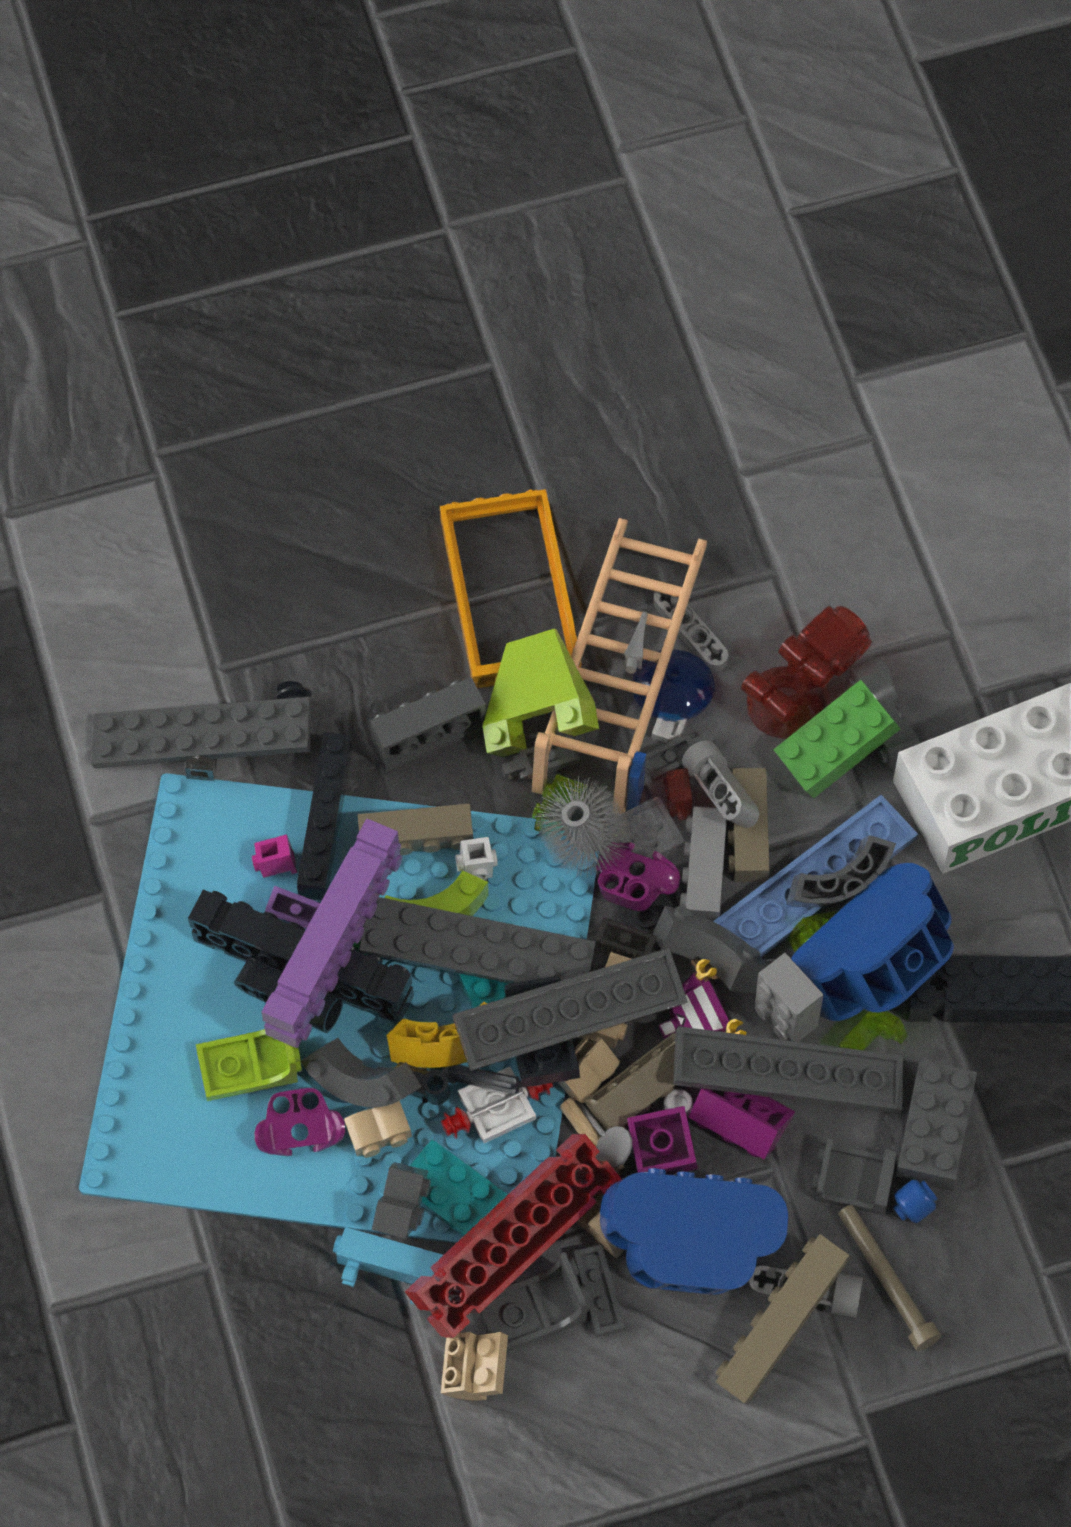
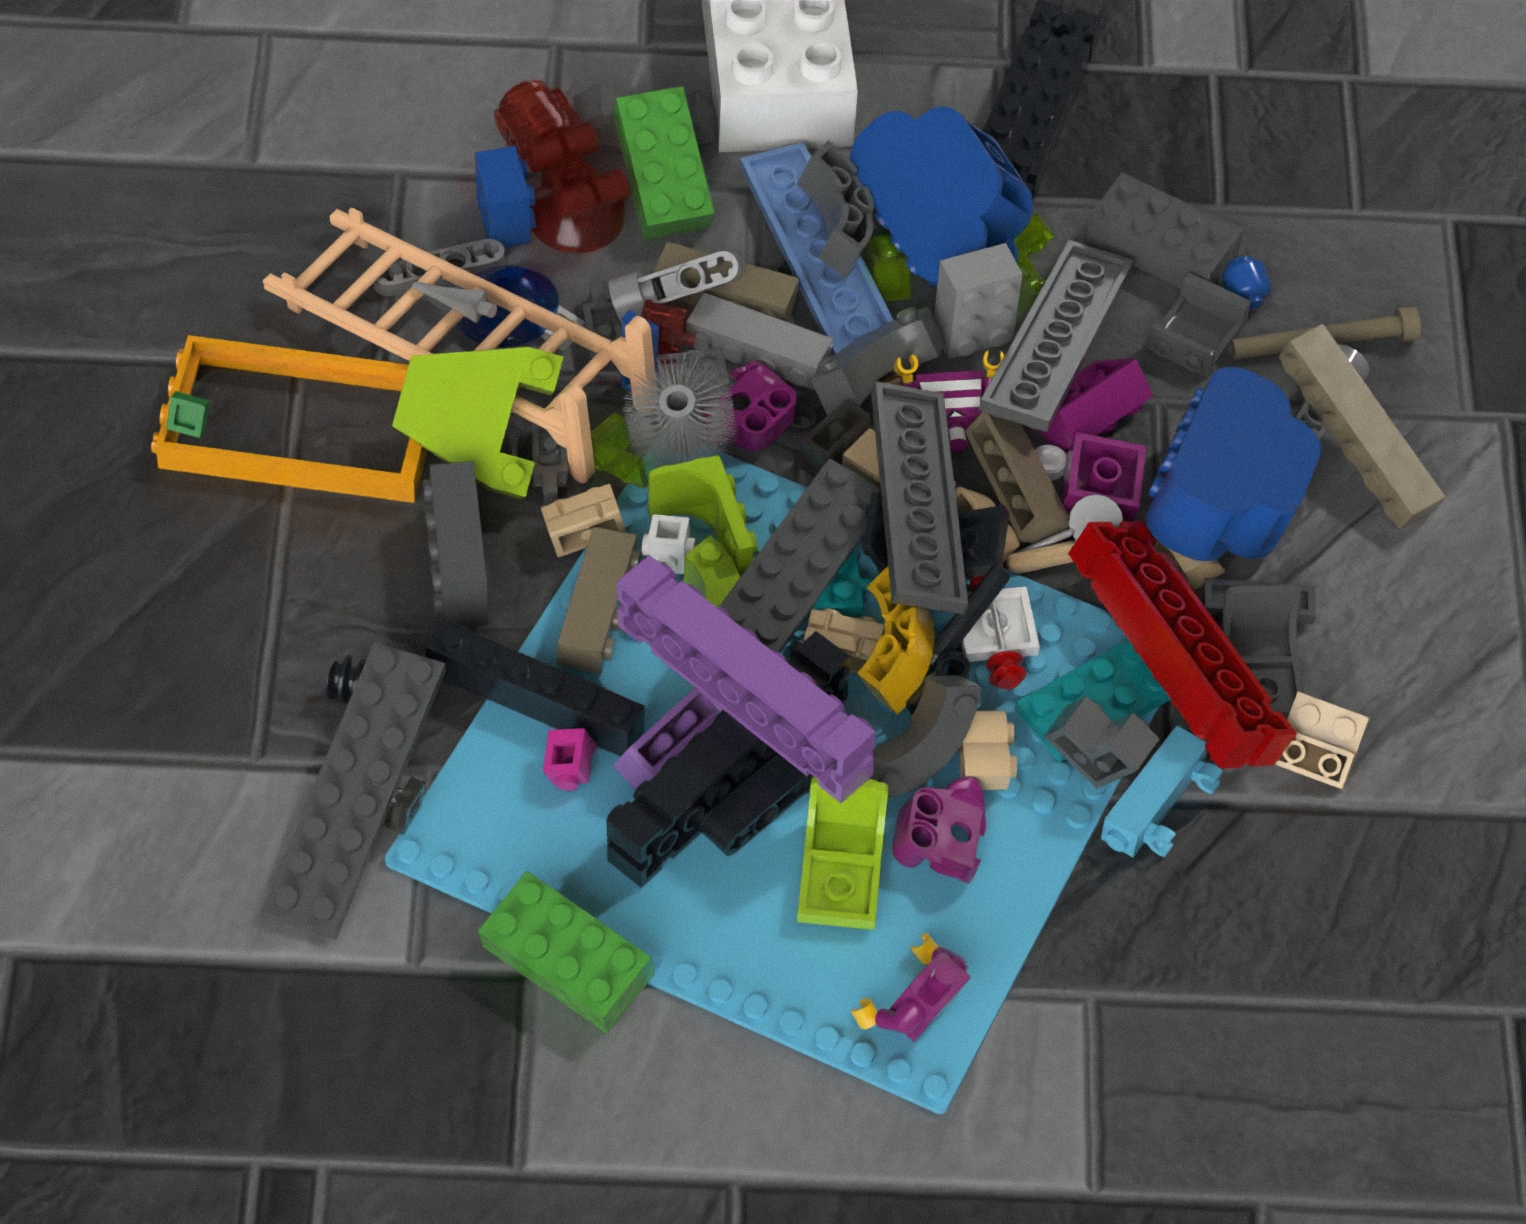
camera: 75 degrees left, 10 degrees down
(115, 907) = (566, 952): none -> bright green brick
(157, 1148) = (924, 997): none -> magenta torso
(438, 997) = (849, 634): none -> tan brick
(467, 514) = (188, 414): none -> green tile
(486, 797) = (573, 518): none -> tan brick
(516, 884) = (705, 492): none -> lime bracket
(758, 641) = (504, 196): none -> blue brick

